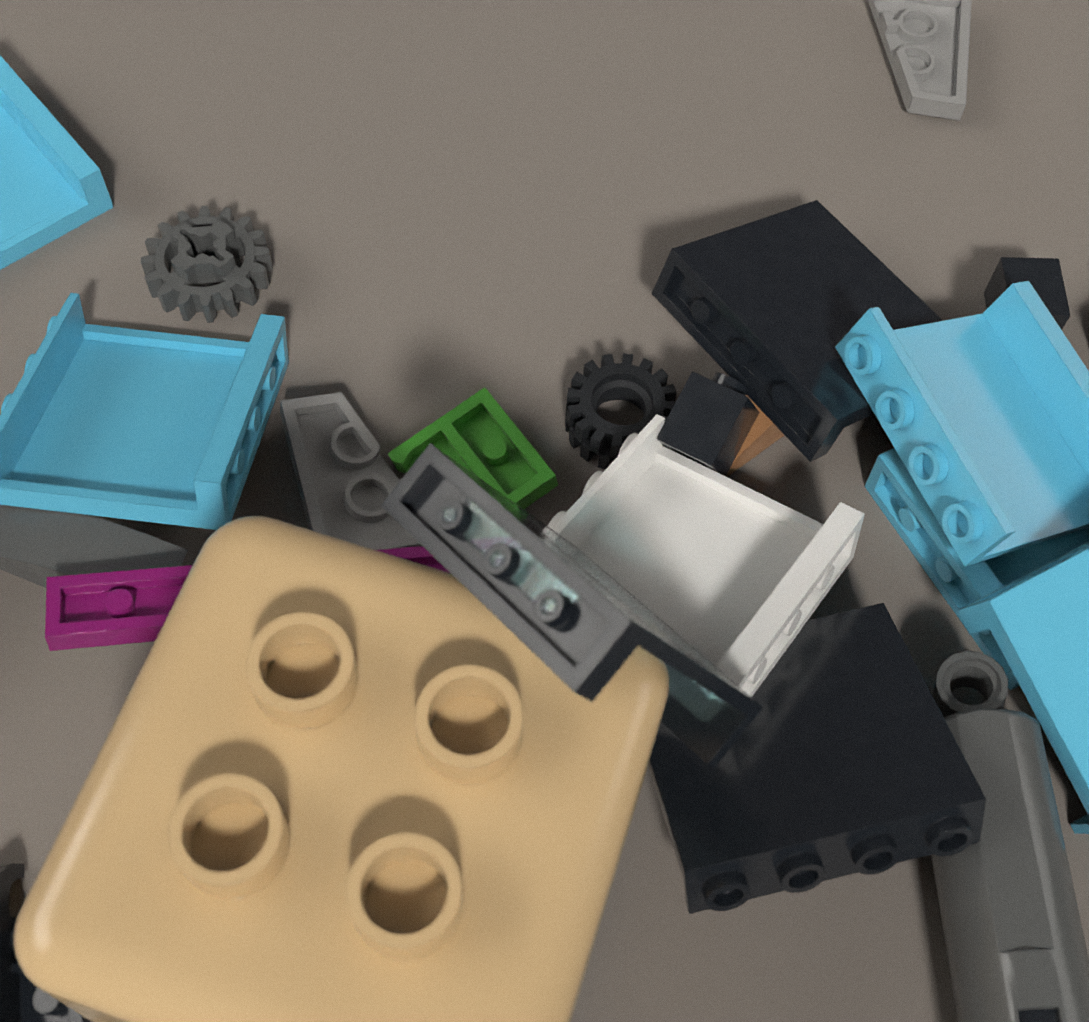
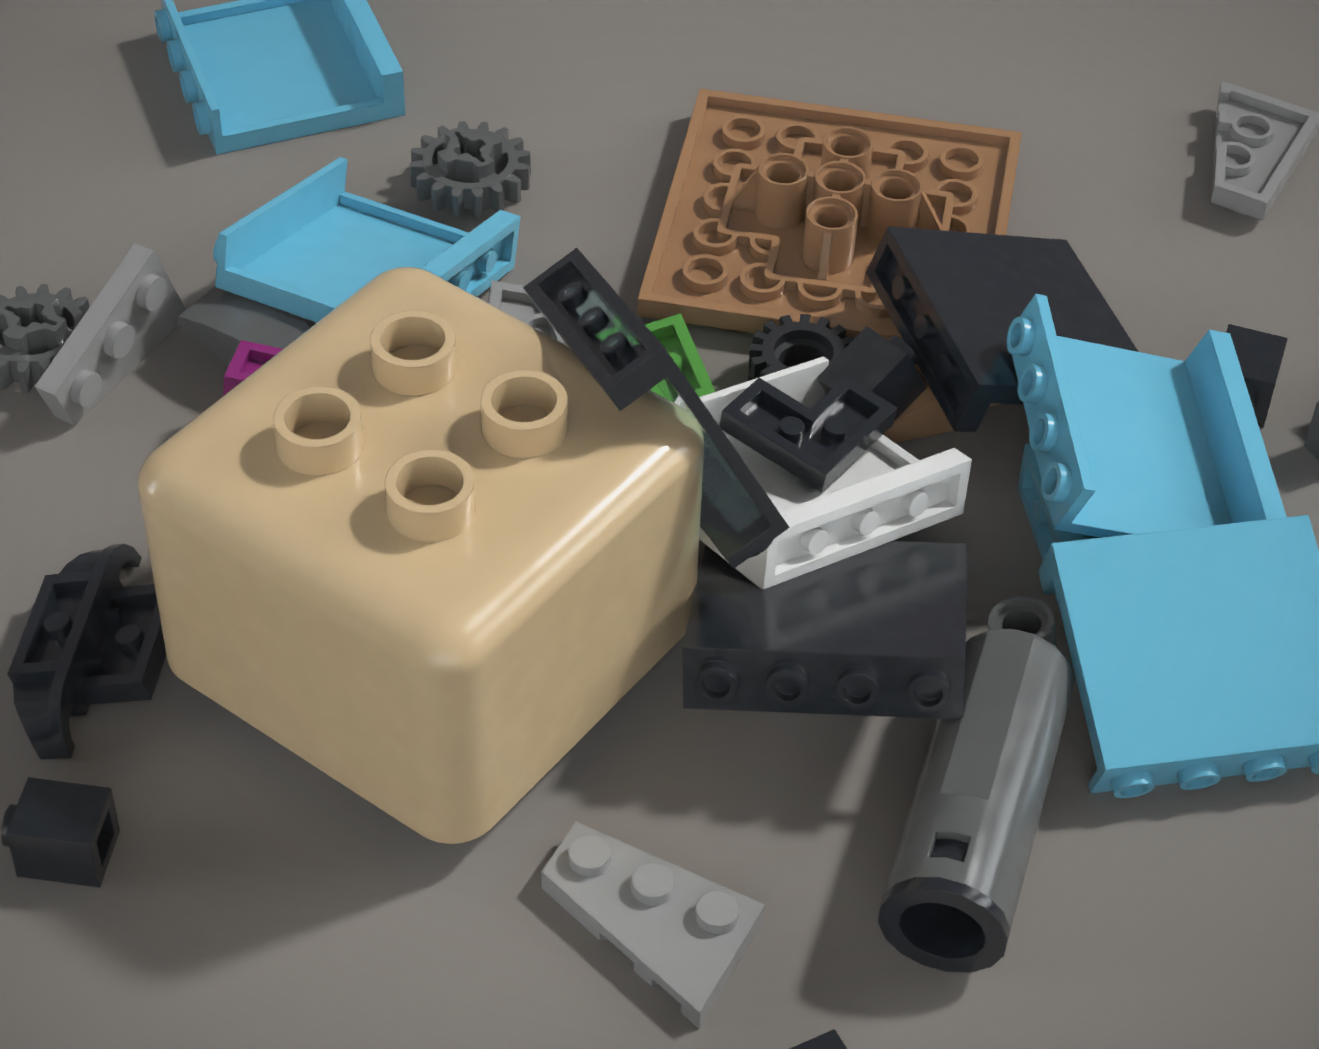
camera: 20 degrees right, 15 degrees down
(555, 223) = (791, 199): none -> medium nougat plate
(687, 530) = (806, 441): none -> black plate

